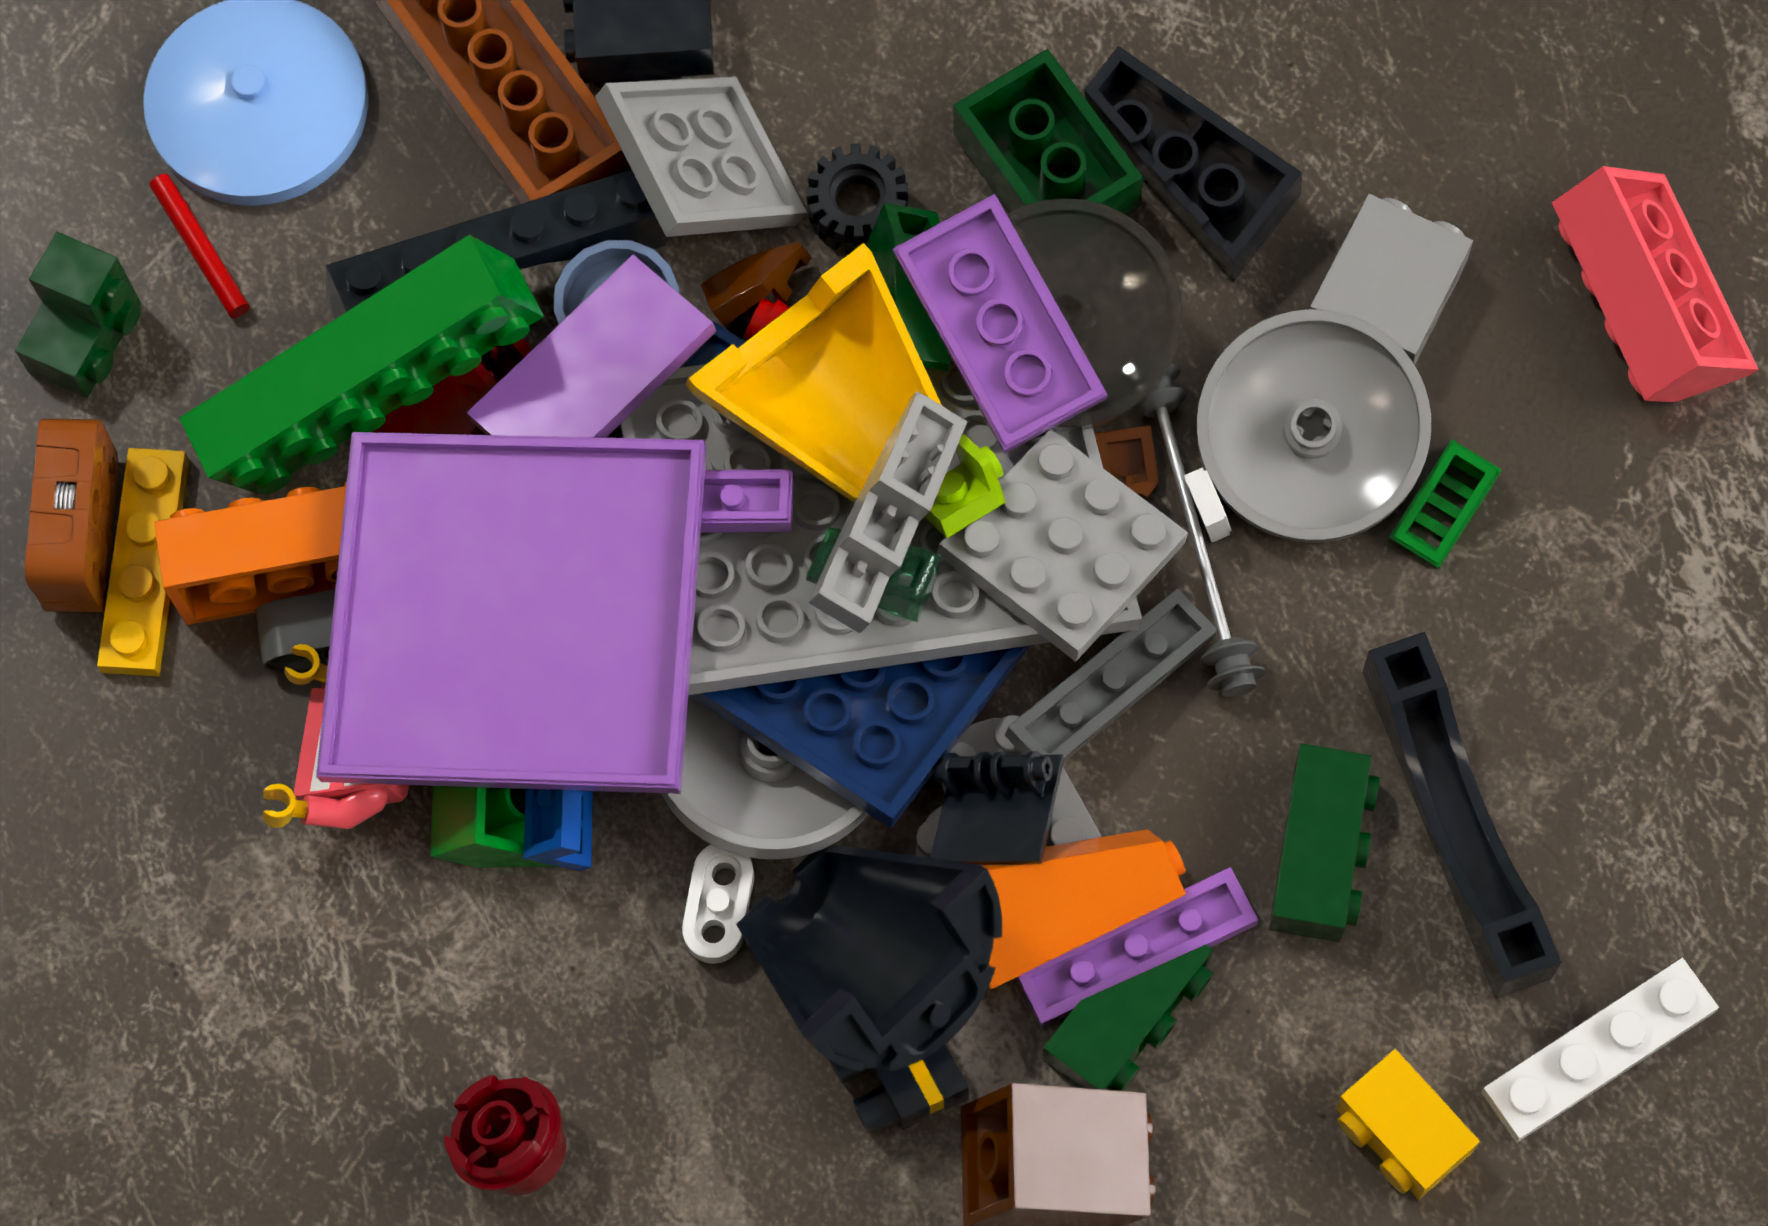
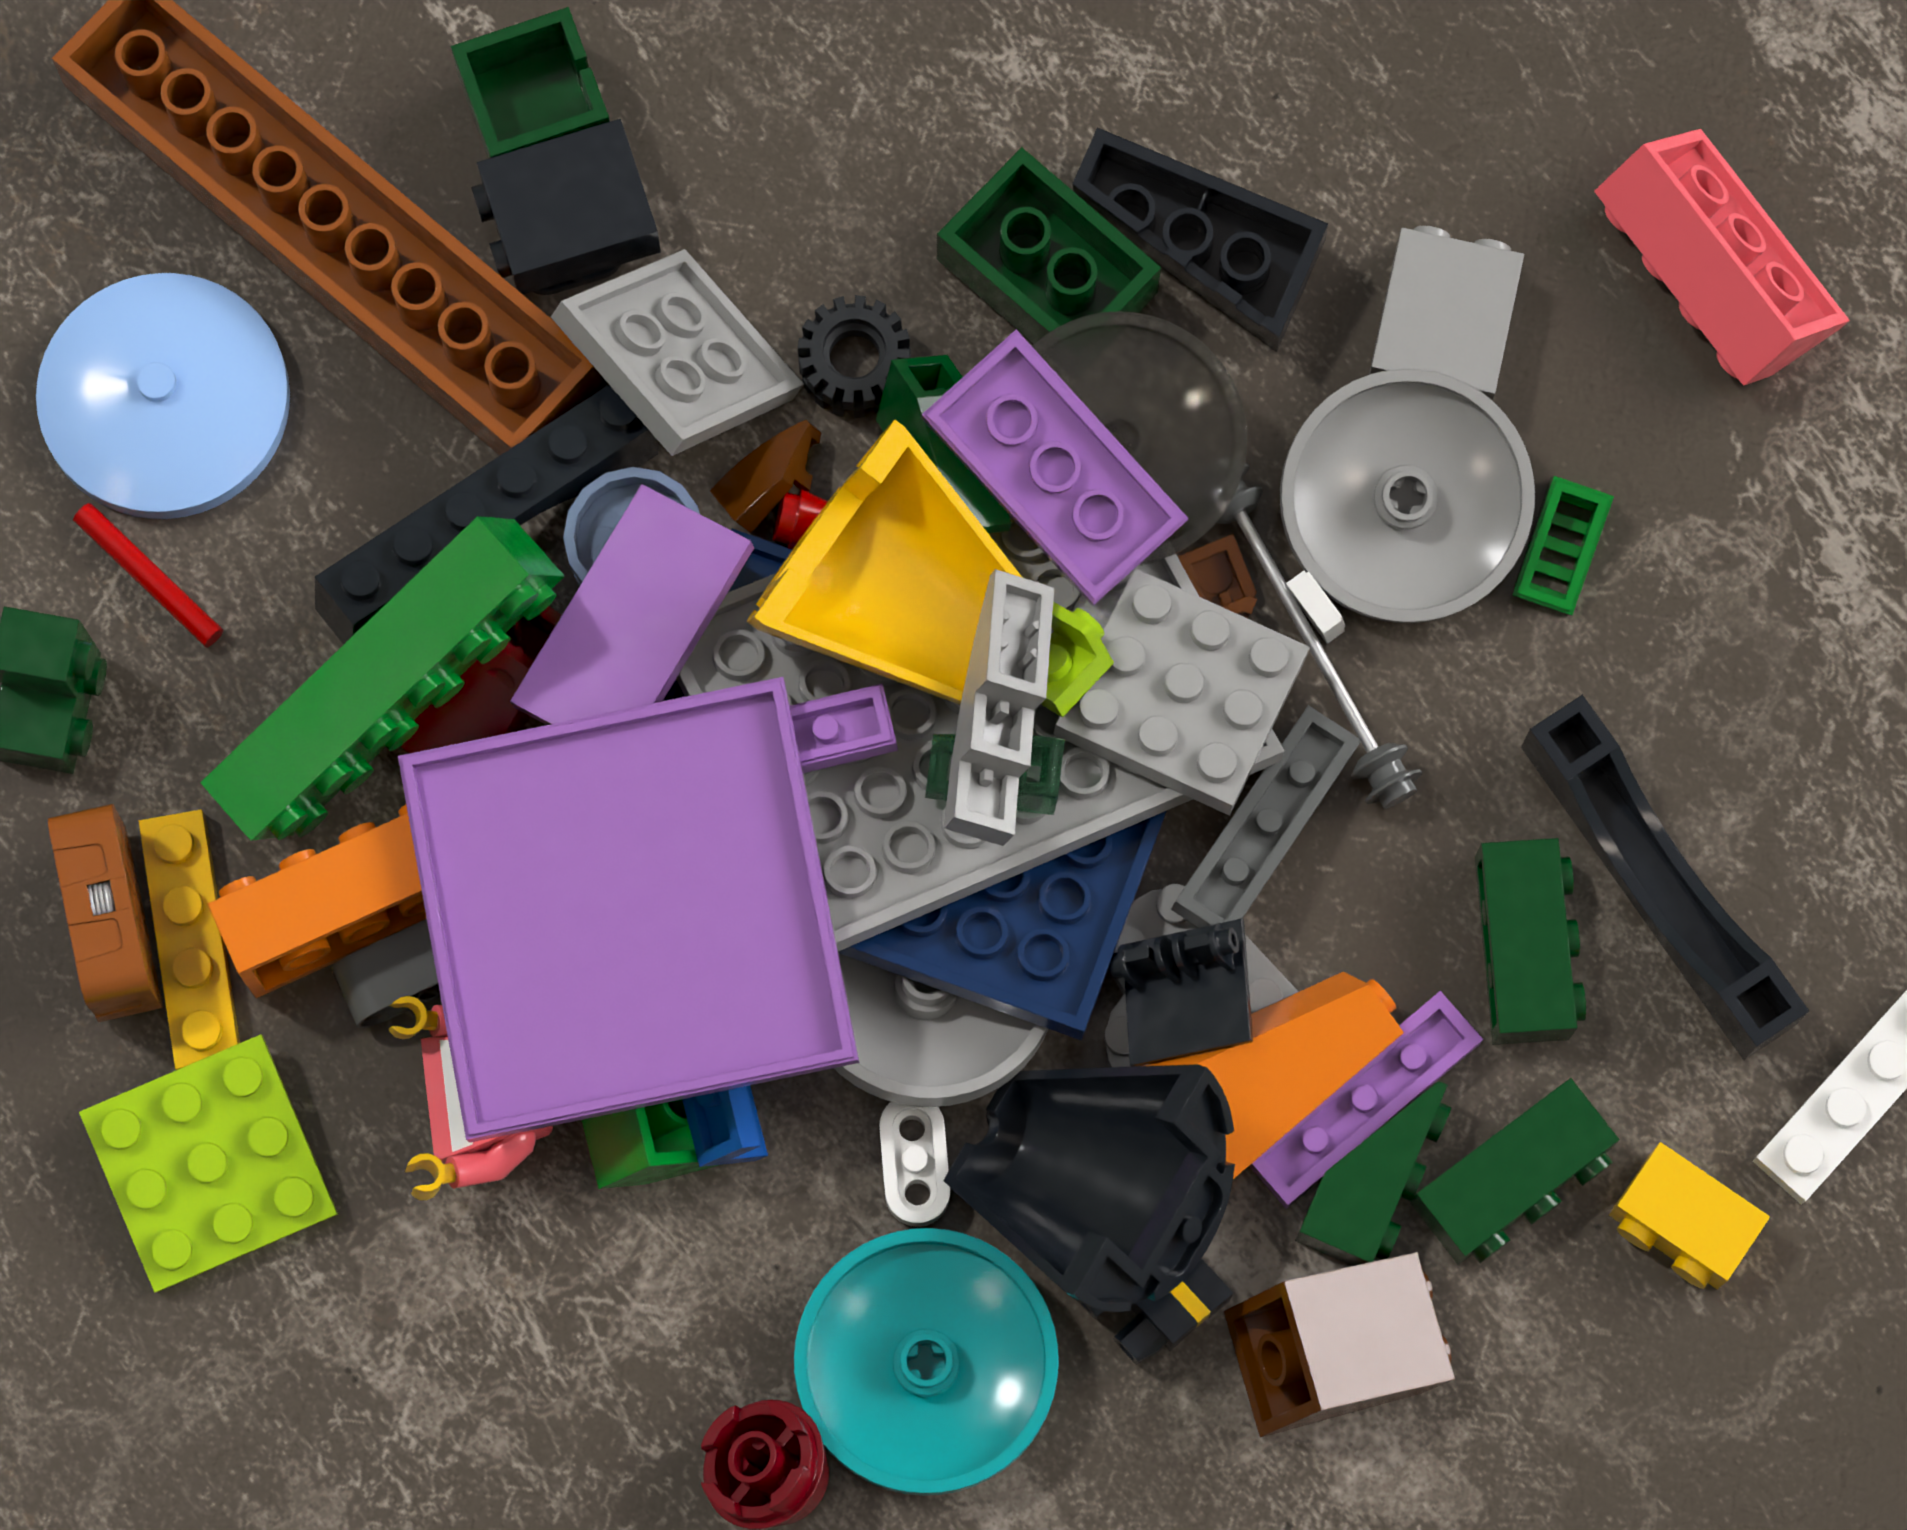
camera: 20 degrees left, 5 degrees up
(101, 753) = (208, 1163): none -> lime plate
(677, 1080) = (926, 1361): none -> teal dish
(1257, 1047) = (1516, 1174): none -> dark green brick

